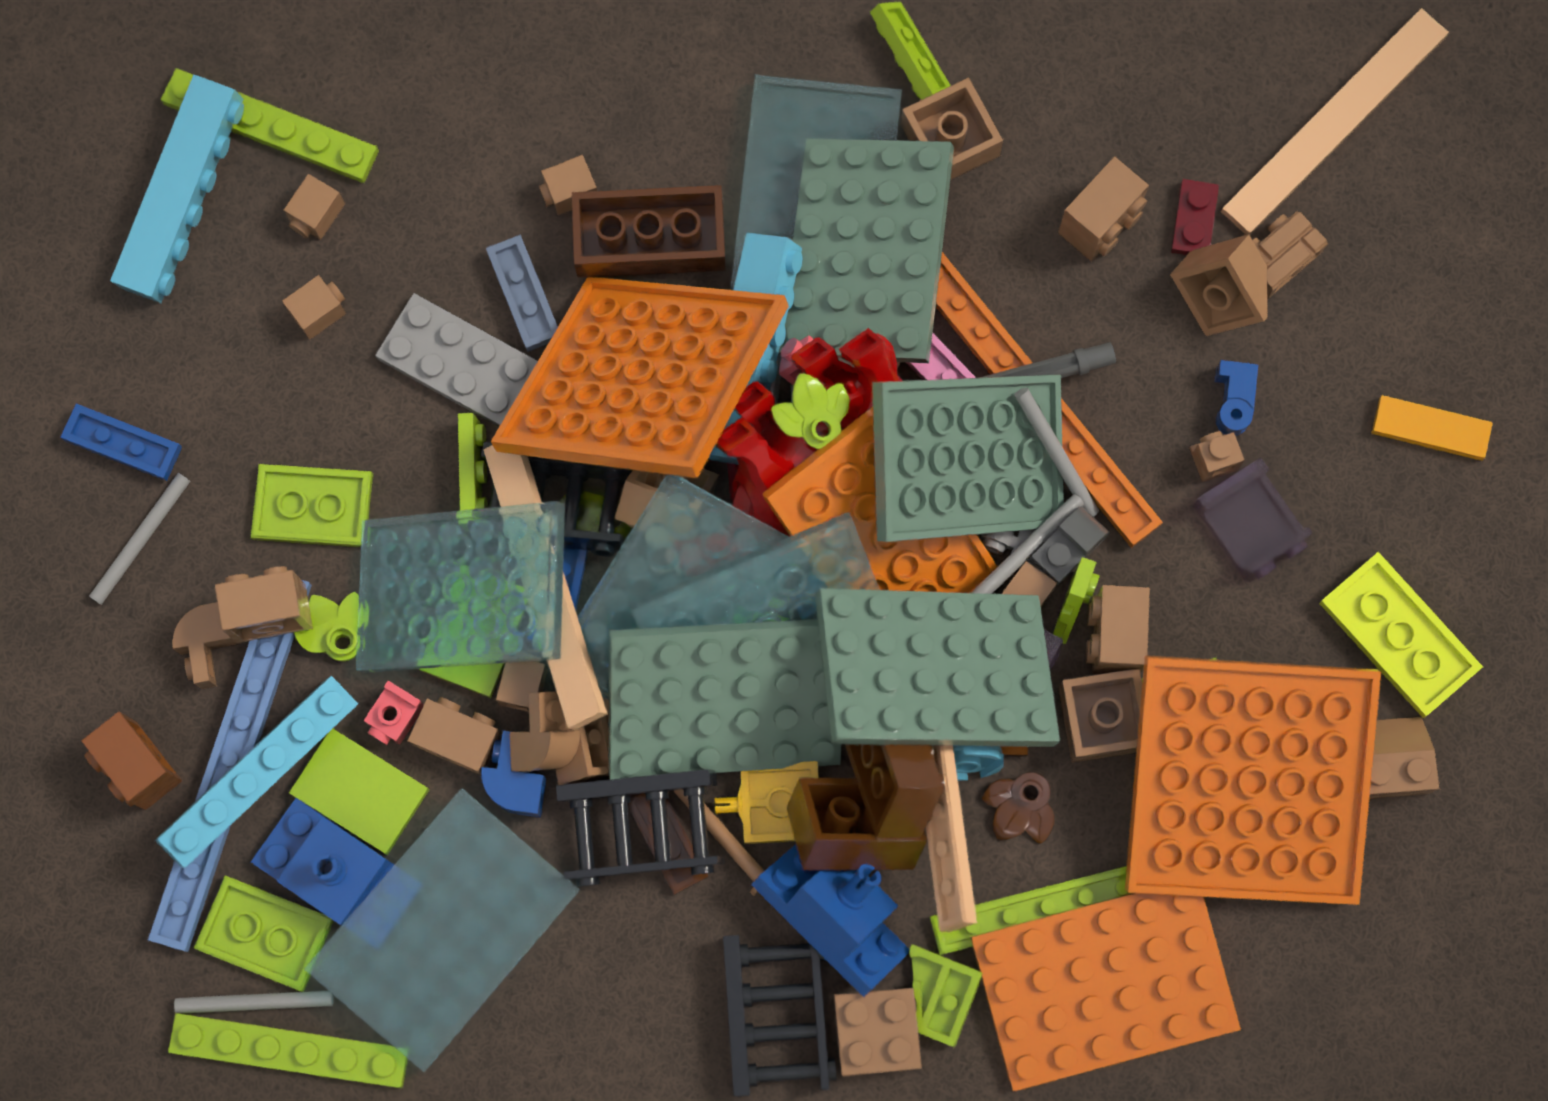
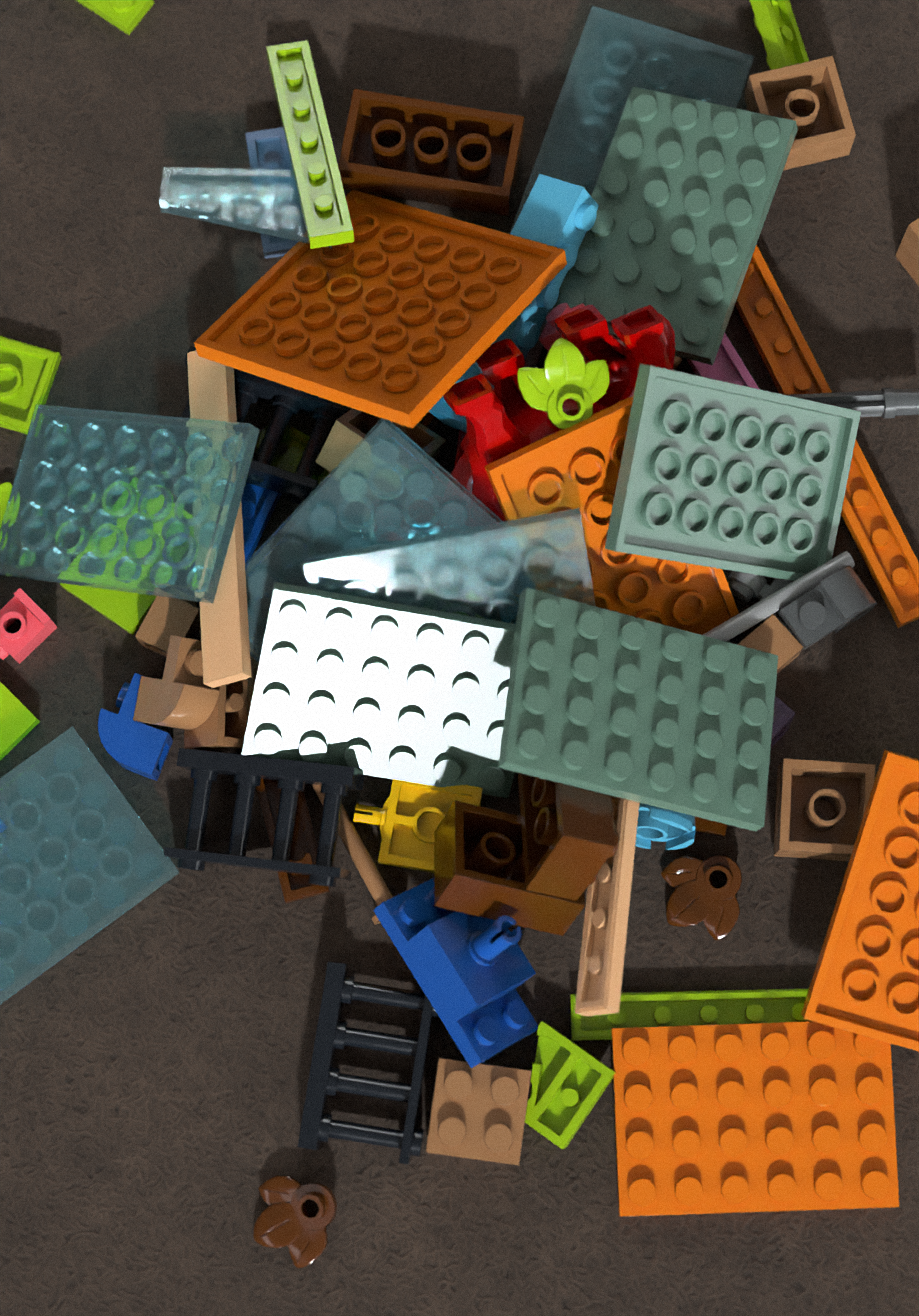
camera: 15 degrees right, 0 degrees up
(313, 208) = (65, 48): medium nougat brick -> none
(315, 306) = (41, 156): medium nougat brick -> none
(454, 735) = (80, 666): medium nougat brick -> none
(456, 359) = (184, 256): light grey plate -> none
(471, 468) = (171, 370): lime plate -> none
(516, 304) = (238, 198): none -> clear light blue wing
(545, 248) = (310, 145): none -> lime plate
(563, 180) = (351, 73): medium nougat brick -> none
(1055, 449) = (835, 494): light grey bar -> none
(1080, 590) = (826, 663): lime wing -> none
(1120, 629) = (863, 714): medium nougat brick -> none

